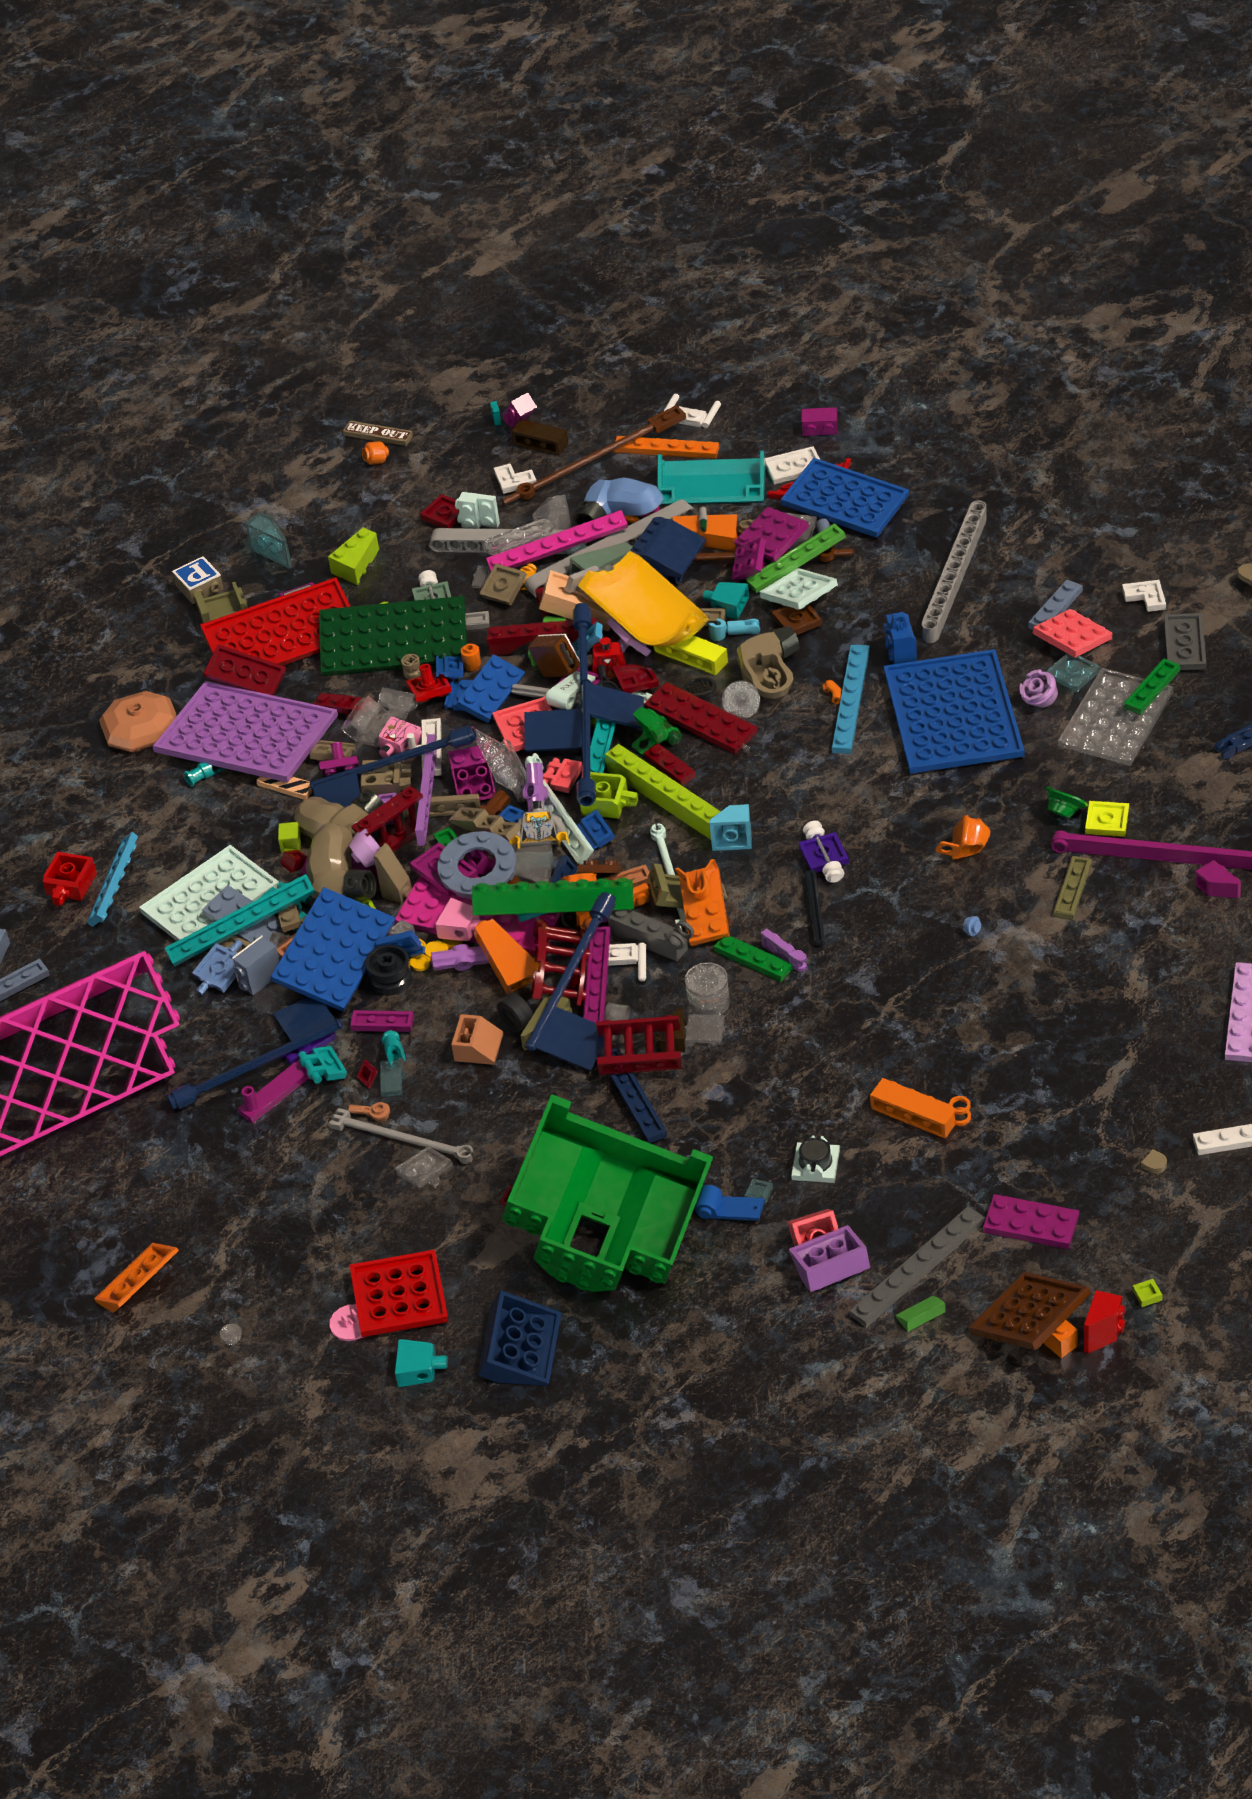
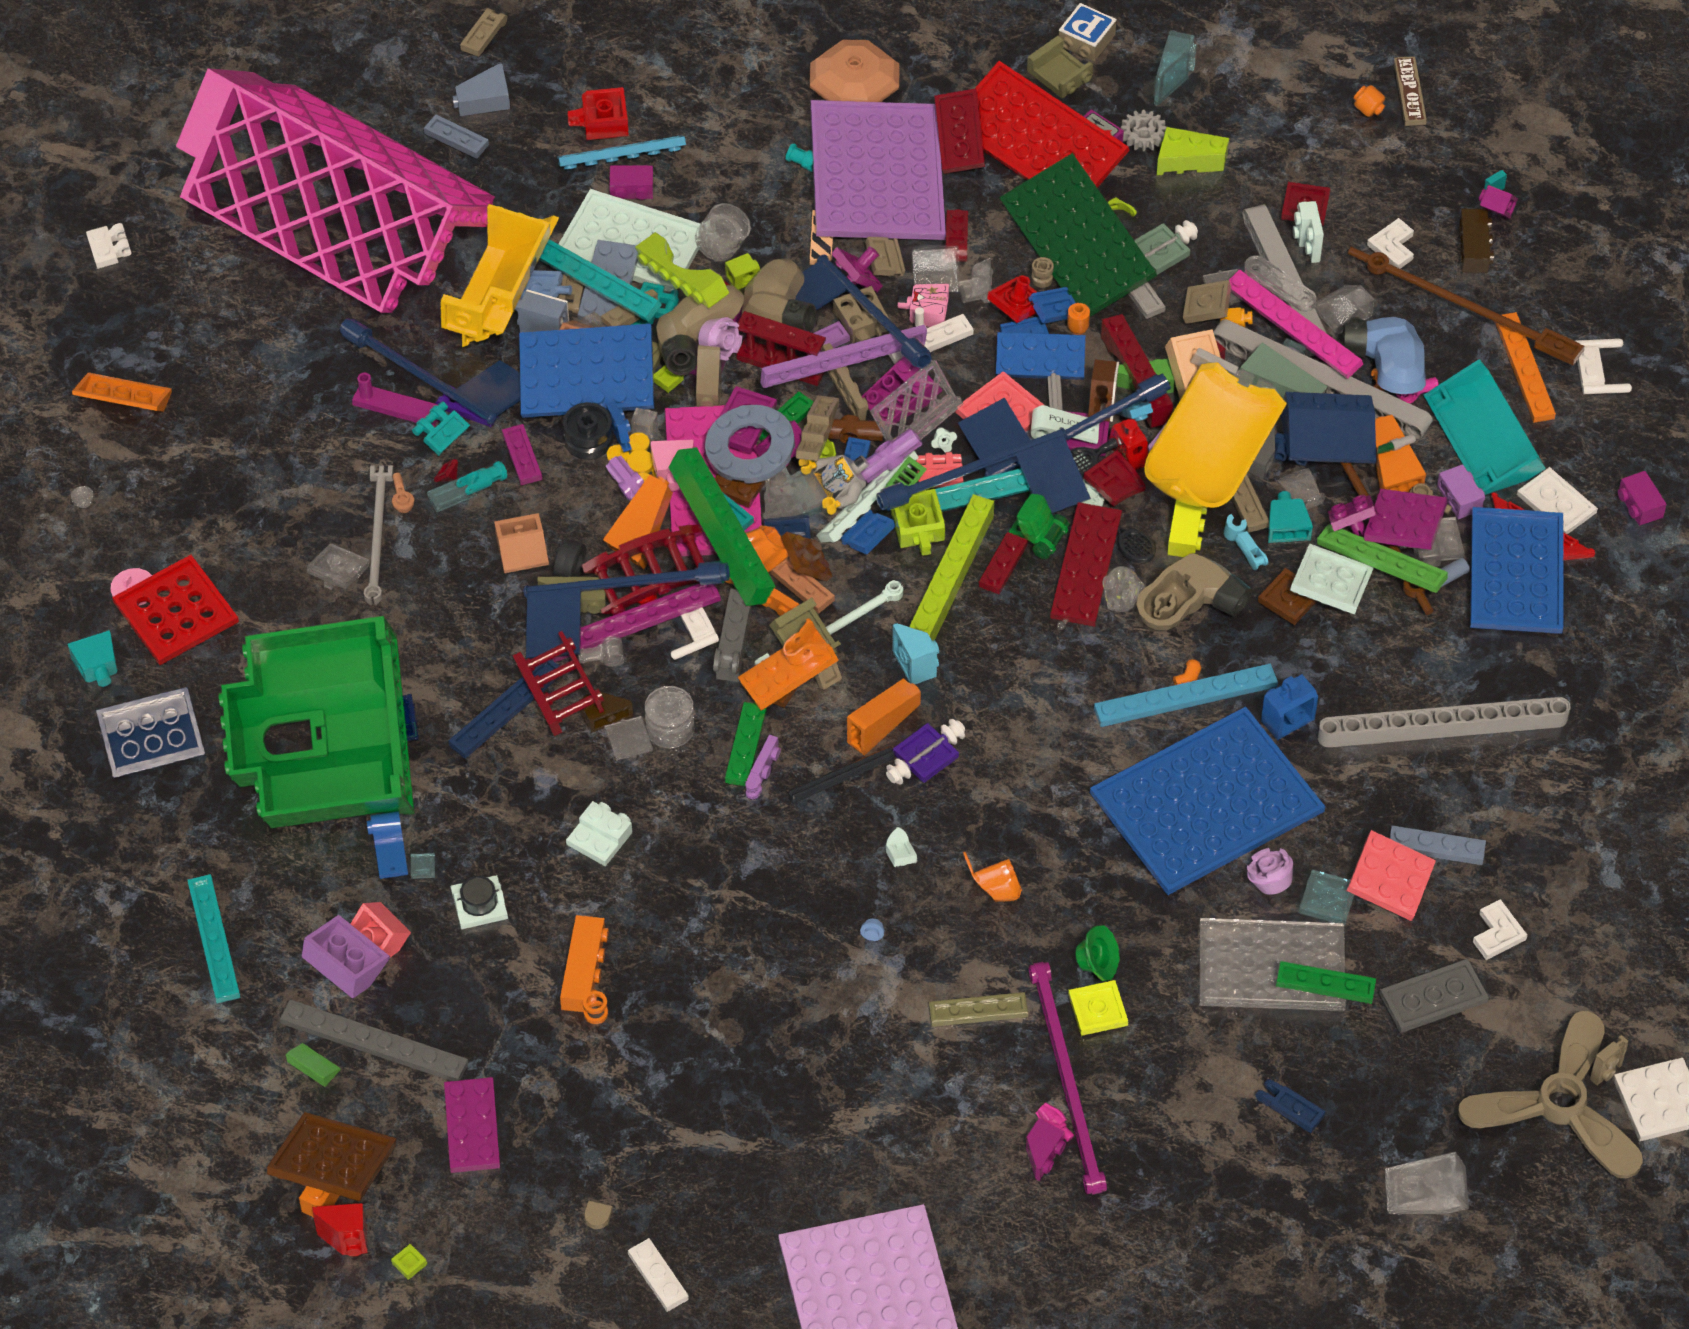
camera: 60 degrees right, 10 degrees up
(150, 880) = (631, 182): none -> magenta brick
(202, 977) = (500, 277): none -> yellow panel
(249, 831) = (722, 232): none -> clear wheel
(250, 872) = (702, 285): none -> lime arch
(314, 573) = (1143, 130): none -> light grey gear
(563, 791) = (916, 465): none -> bright green slope
(696, 586) = (1303, 486): none -> clear piece
(755, 503) = (1460, 490): none -> medium lavender brick
(760, 1348) = (213, 939): none -> teal plate
(778, 865) = (881, 715): none -> orange slope
(790, 1067) = (600, 833): none -> light aqua plate
(907, 890) = (899, 848): none -> light aqua plate
(1188, 870) = (1056, 1118): none -> dark pink piece

